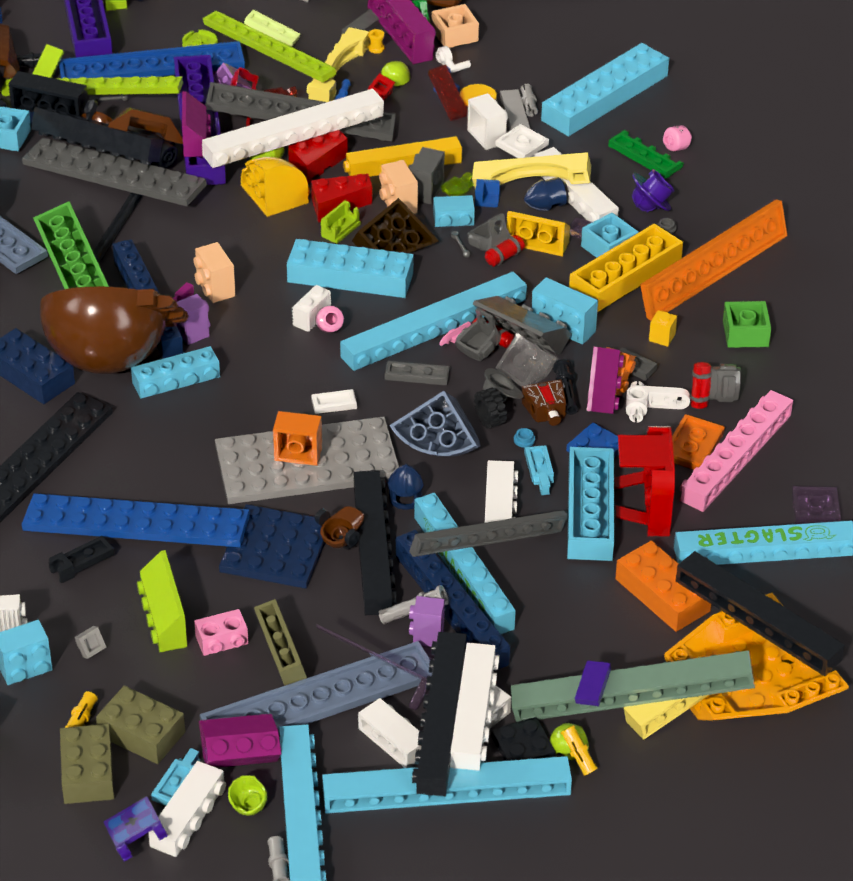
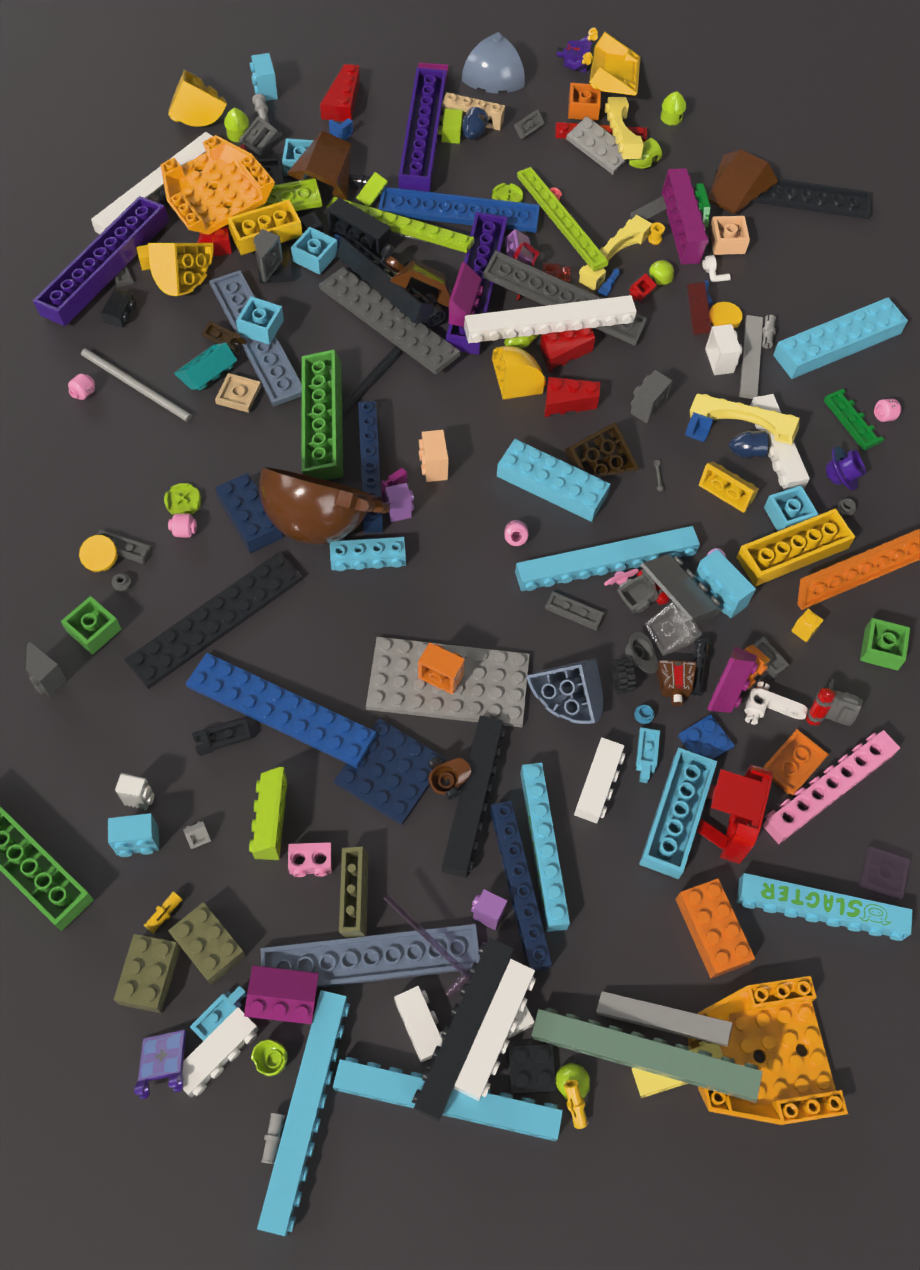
camera: 15 degrees right, 20 degrees up
(271, 28) = (571, 198): yellowish green plate -> none
(308, 306) = (504, 513): white brick -> none
(334, 401) = (492, 622): white tile -> none
(339, 222) = (560, 426): lime hinge -> none
(371, 160) = (636, 367): yellow brick -> none
(399, 183) = (622, 404): light nougat brick -> none
(403, 609) = (500, 889): light grey pin -> none
(405, 483) = (520, 743): dark blue helmet -> none
(453, 211) = (663, 439): medium azure brick -> none
(458, 186) = (676, 412): clear neon green plate -> none
(487, 533) = (572, 830): dark grey tile -> none
(495, 240) = (688, 485): dark grey piece -> none
(522, 142) = (747, 378): white tile -> none
(576, 227) = (769, 487): clear purple plate -> none
(592, 683) = (609, 1044): dark purple tile -> none
(667, 652) = (665, 1018): none -> light grey tile
(760, 613) = (791, 1009): black brick -> none

